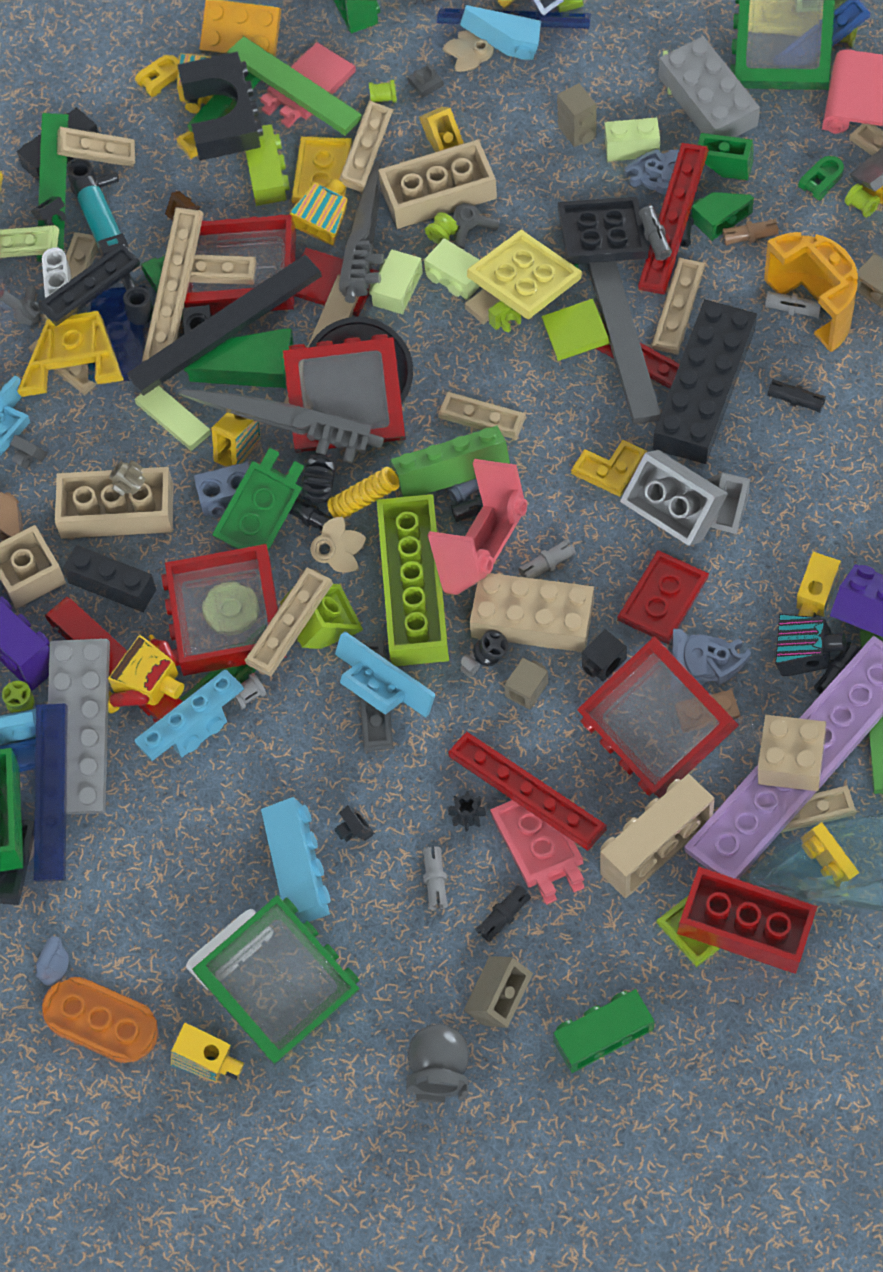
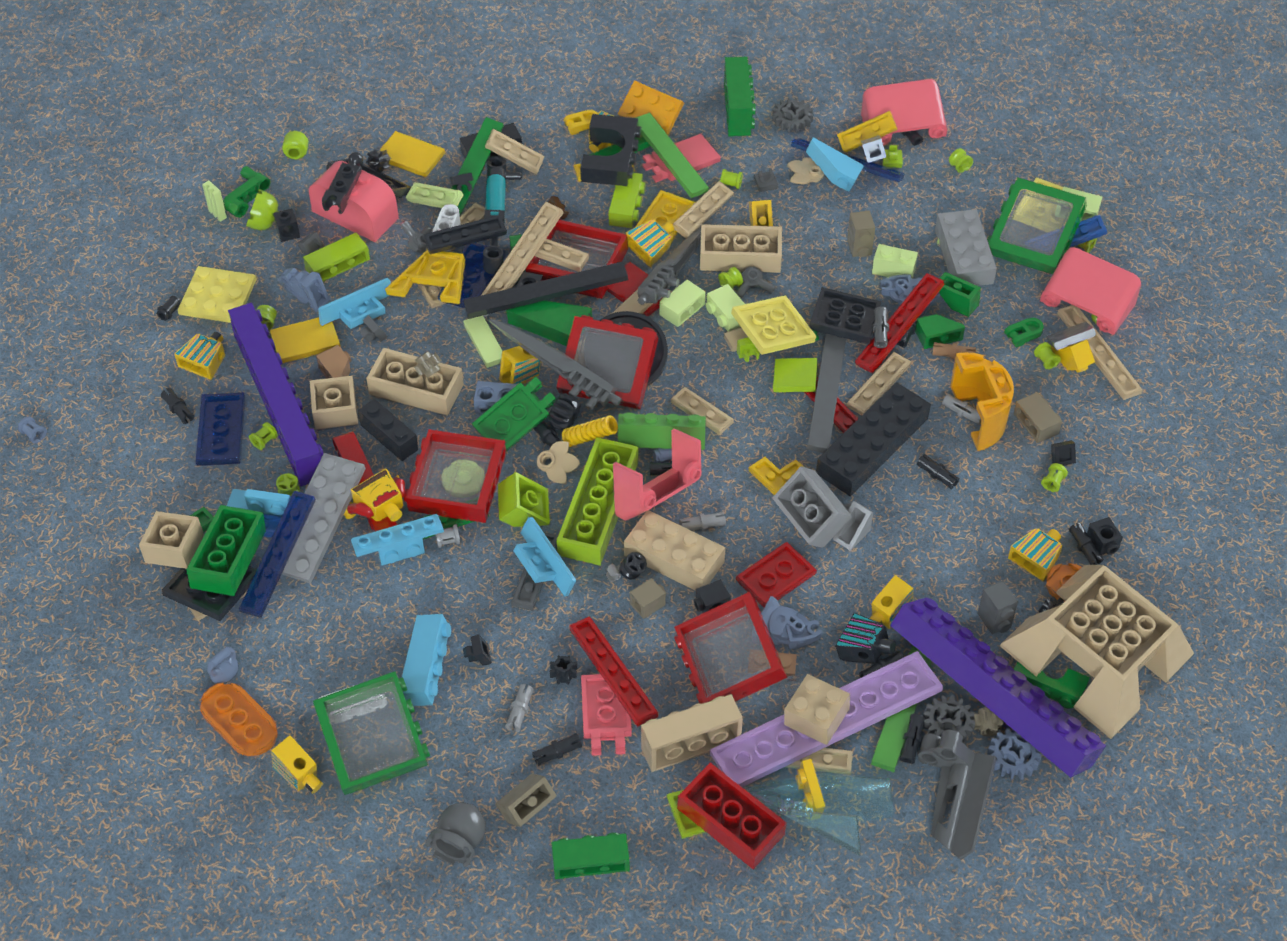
camera: 15 degrees right, 10 degrees down
(288, 622) = (494, 495): tan tile -> none

